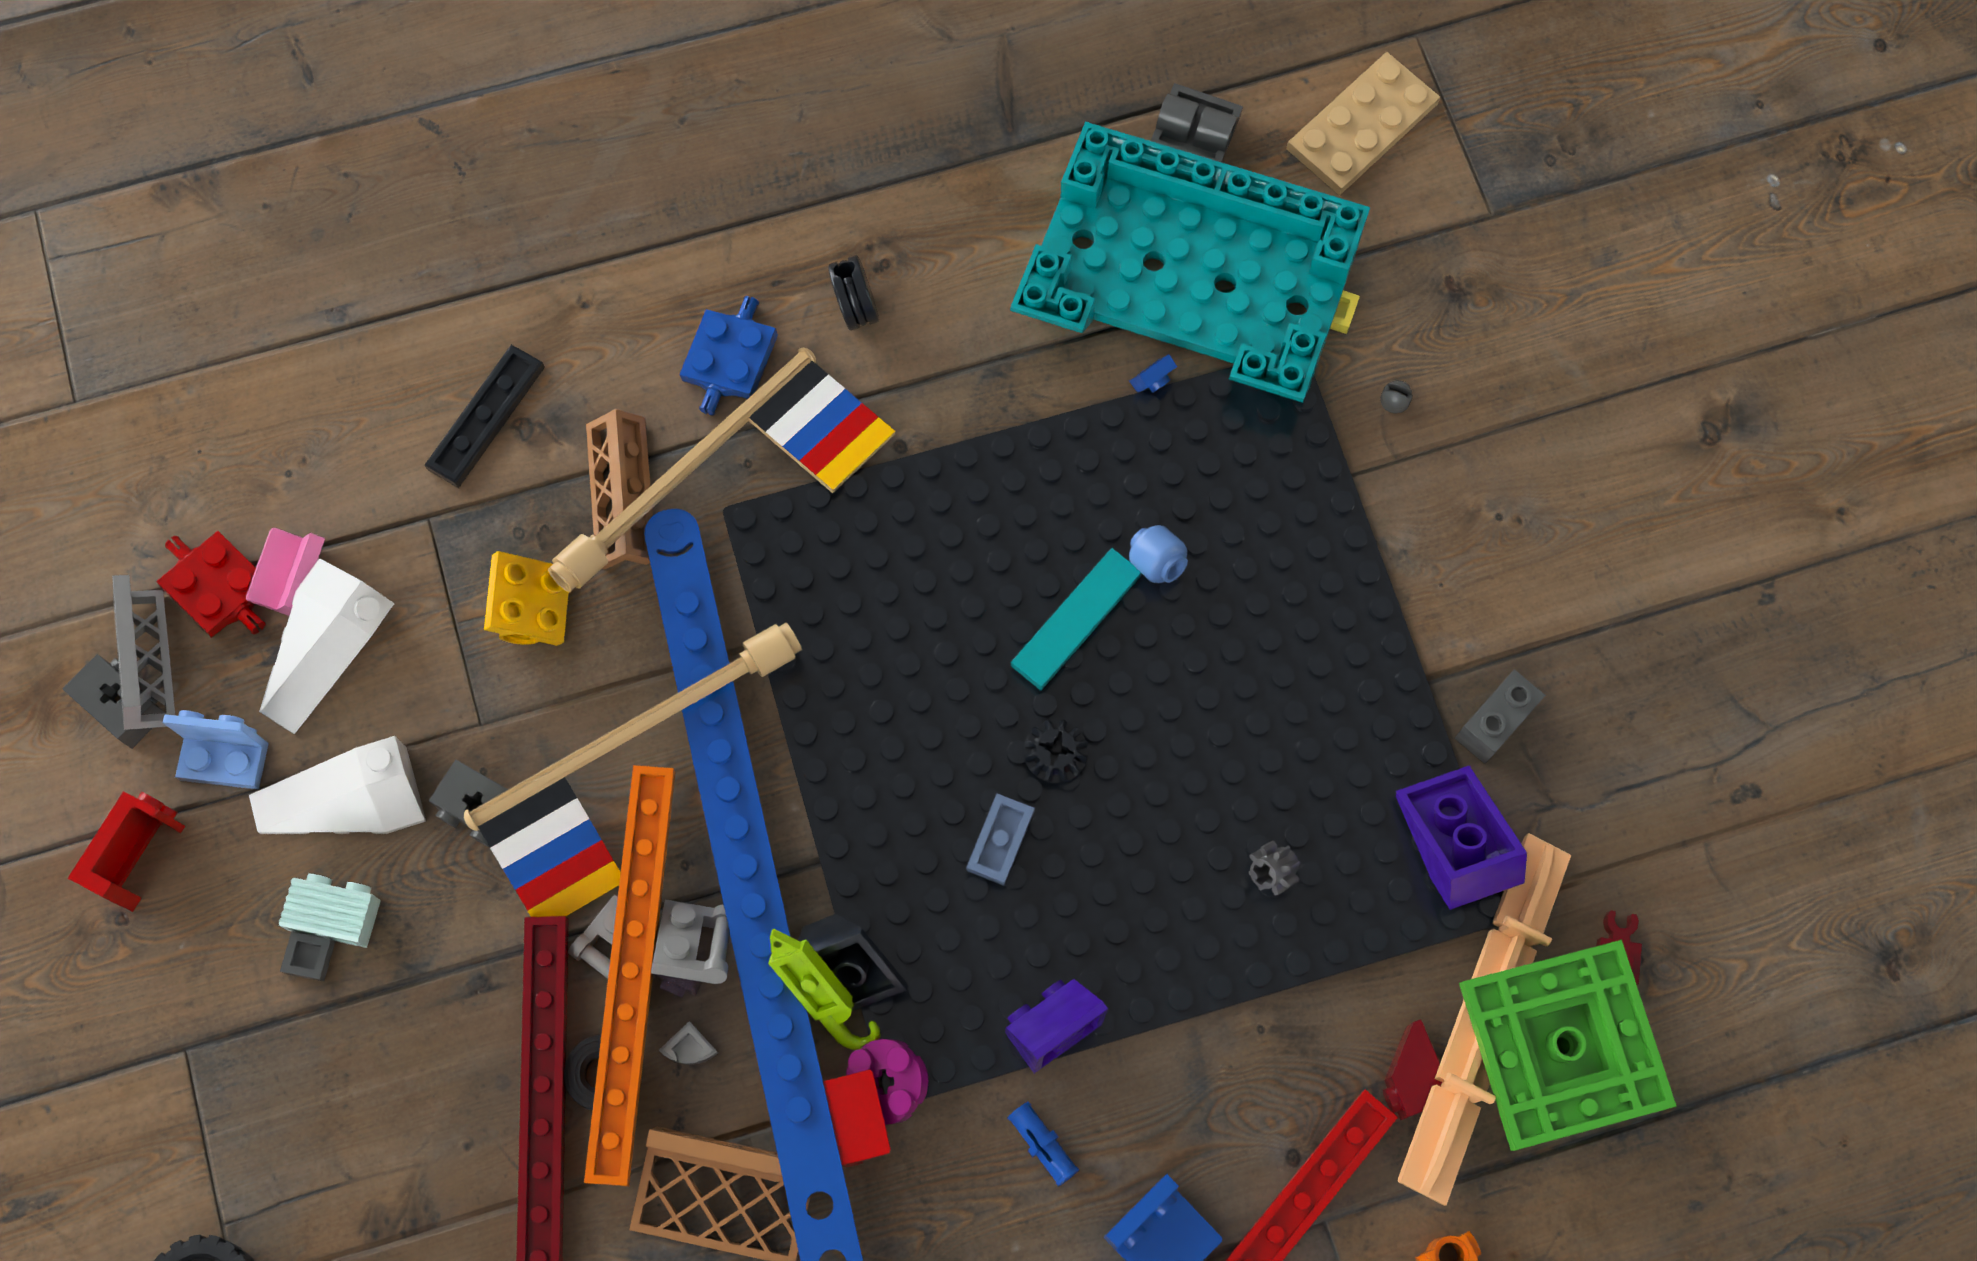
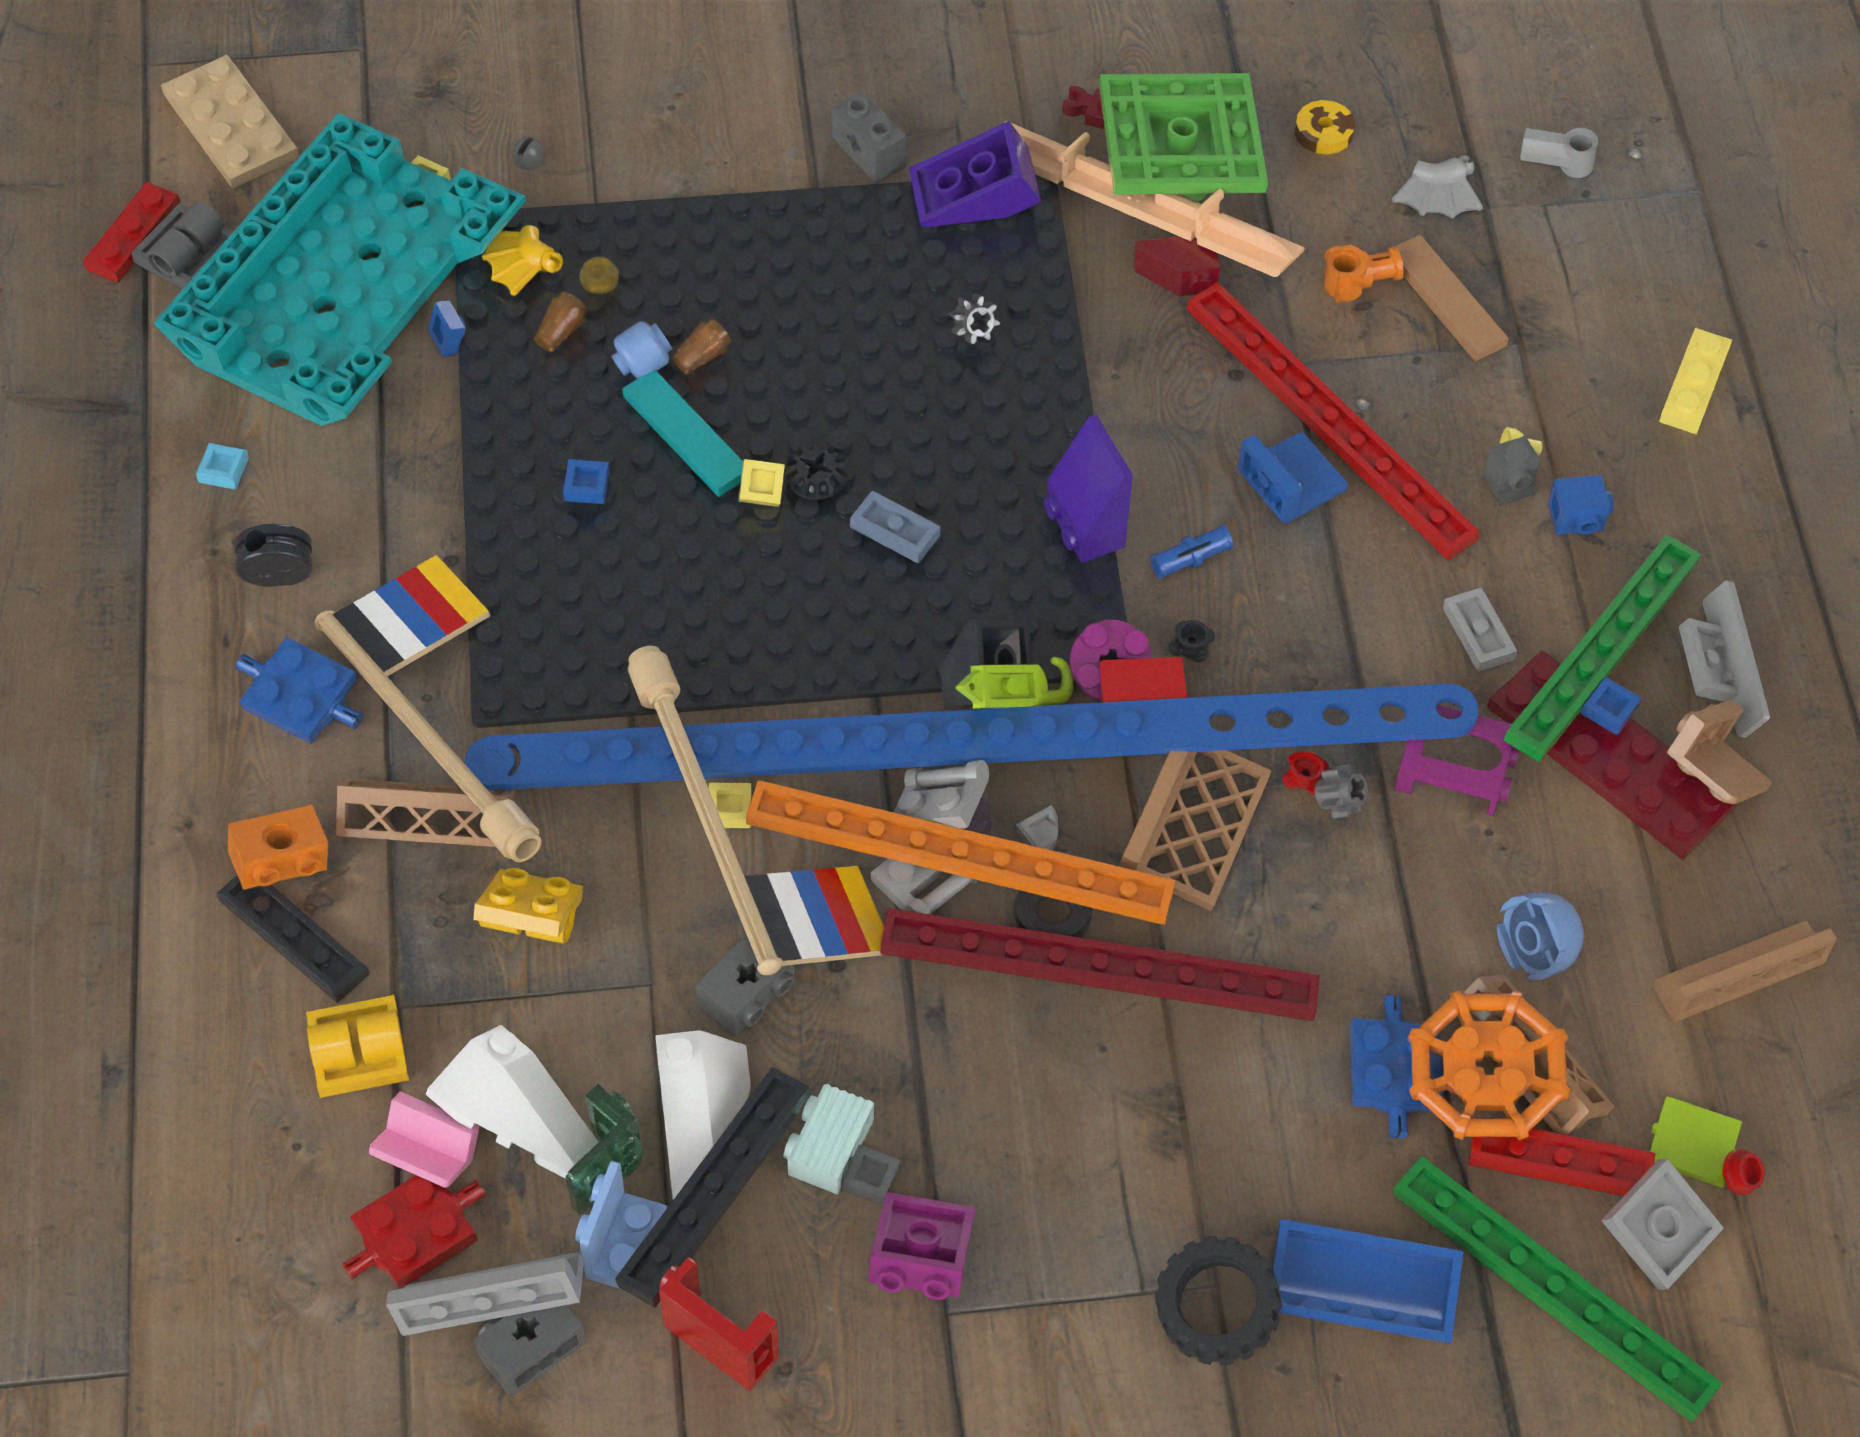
camera: 80 degrees left, 15 degrees down
(233, 1013) = (921, 1246): none -> magenta plate
(263, 820) = (714, 1184): none -> black plate
(301, 726) = (619, 1142): none -> clear green bracket
(376, 493) = (356, 1046): none -> yellow plate
(549, 356) = (277, 847): none -> orange brick
(667, 749) = (732, 802): none -> light yellow plate
(942, 1171) = (1194, 631): none -> black plate
(960, 227) = (222, 466): none -> medium azure tile
(993, 540) = (586, 481): none -> blue plate
(1024, 701) = (761, 482): none -> light yellow plate
(1178, 472) = (560, 321): none -> clear orange cone
(1180, 610) = (702, 346): none -> clear orange cone
(1209, 76) = (146, 210): none -> red plate
(1246, 495) = (599, 275): none -> clear yellow plate
(1252, 418) = (519, 257): none -> yellow arm
(1682, 1208) = (1321, 114): none -> yellow piece

